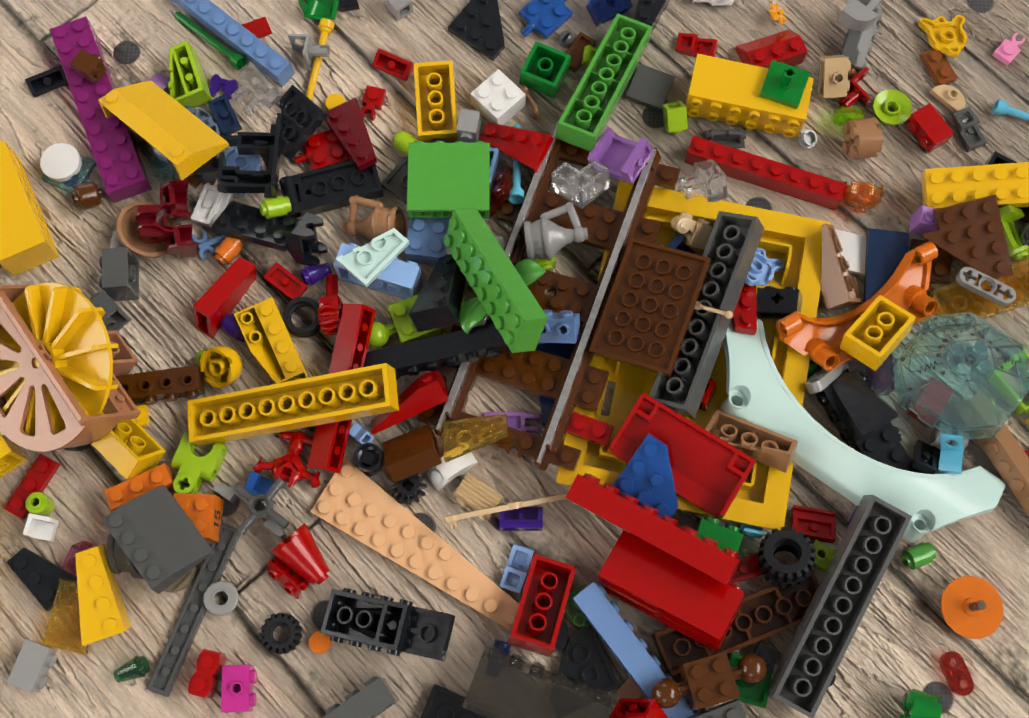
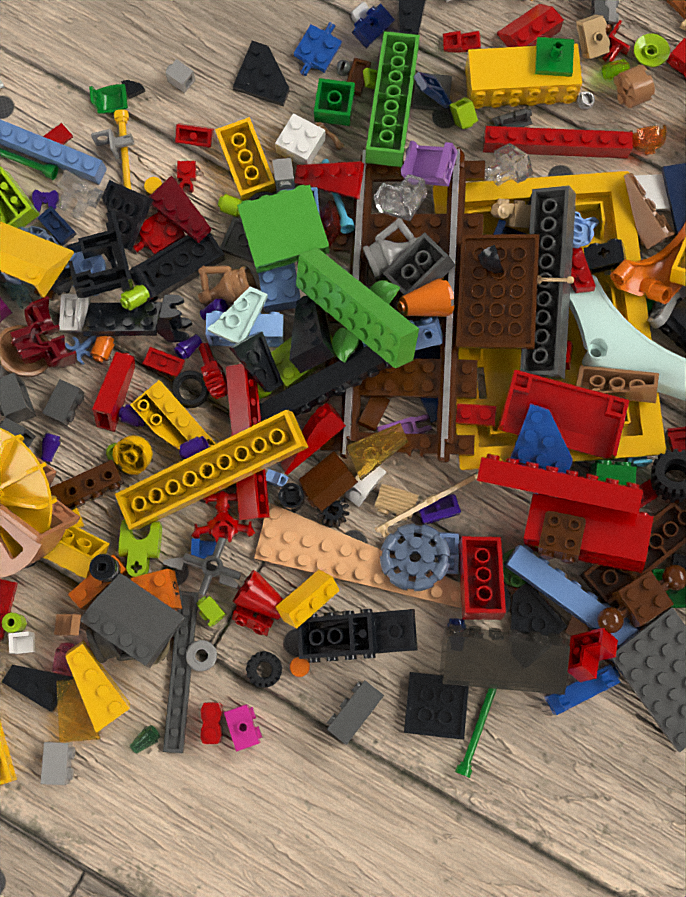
camera: 15 degrees left, 5 degrees up
(88, 521) = (67, 625): none -> medium nougat slope
(140, 333) = (49, 446): none -> dark purple cone
(148, 473) = (104, 568): none -> black wheel
(170, 293) = (64, 402): none -> dark grey brick
(246, 553) = (210, 610): none -> lime brick
(282, 375) = (193, 447): none -> dark purple brick
(350, 571) = (307, 598): none -> yellow brick
(358, 238) = (216, 305): none -> dark purple cone
(378, 306) = (258, 361): none -> black wing
(478, 548) = (406, 549): none -> sand blue plate
(484, 396) = (373, 412): none -> reddish brown tile
(572, 294) = (429, 300): none -> orange cone
(574, 259) = (419, 265): none -> dark grey brick
(638, 586) = (561, 537): none -> reddish brown bracket
(649, 82) = (432, 87): none -> dark blue wing
(651, 270) = (490, 260): none -> black brick

